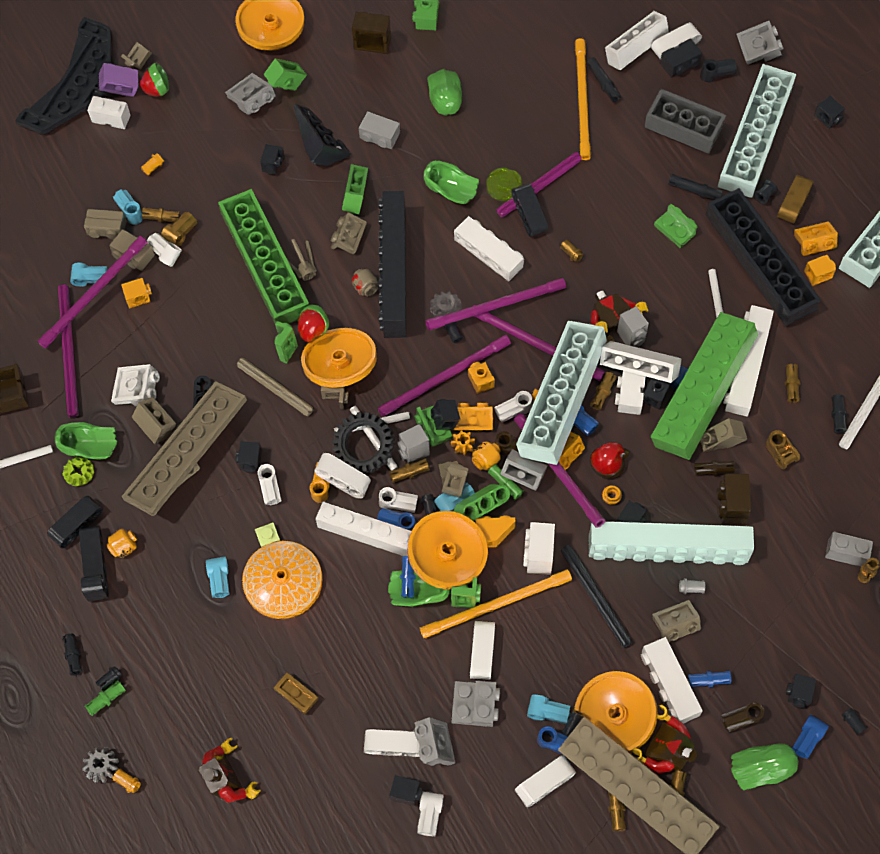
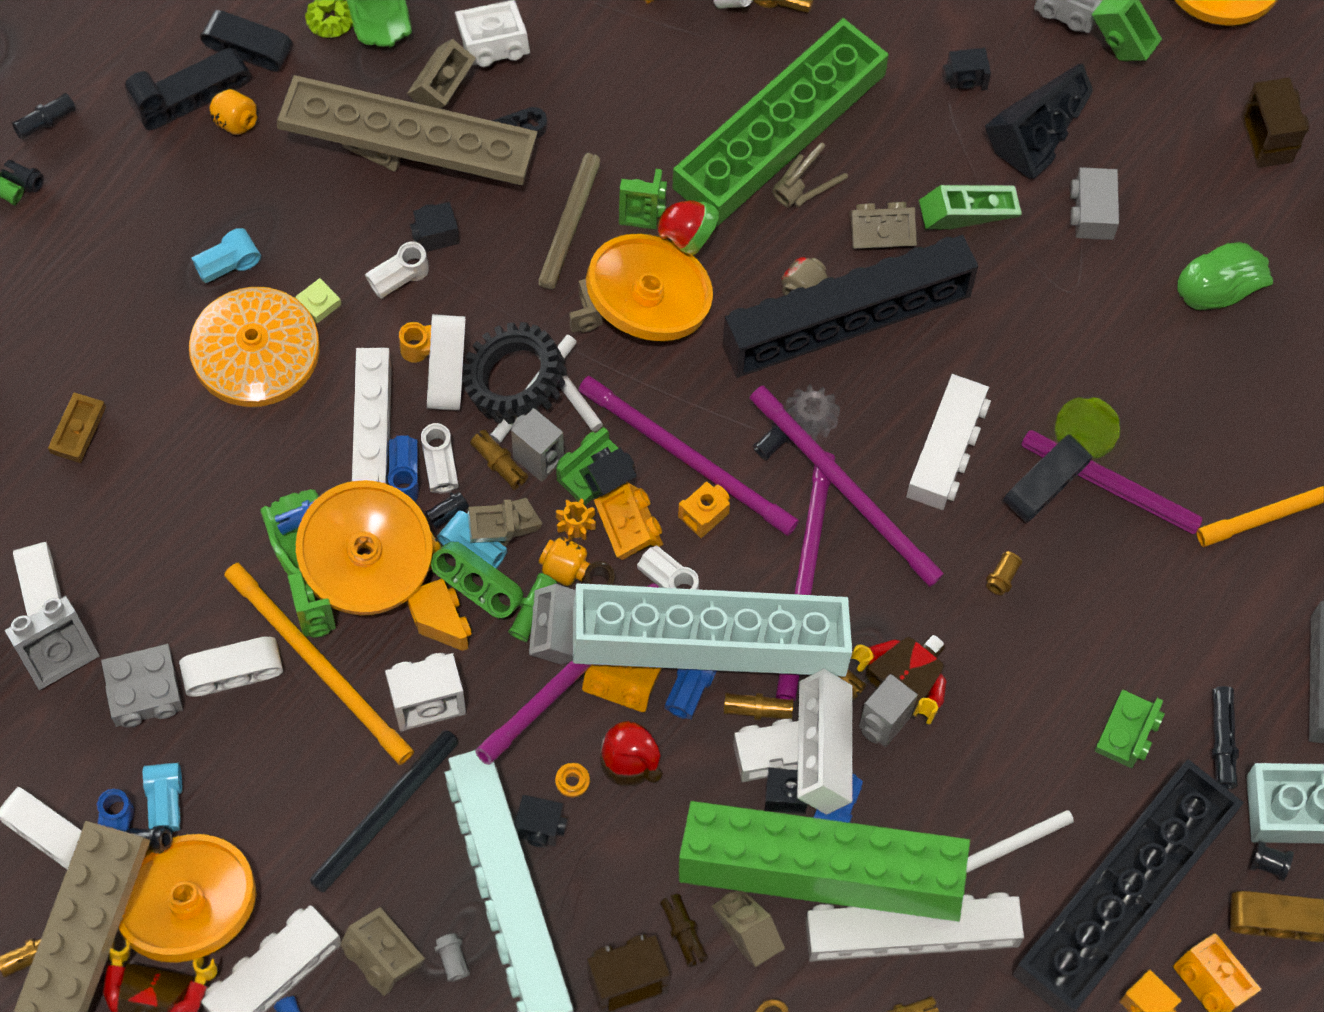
camera: 65 degrees right, 0 degrees up
(450, 181) = (1045, 340): bright green hair -> none

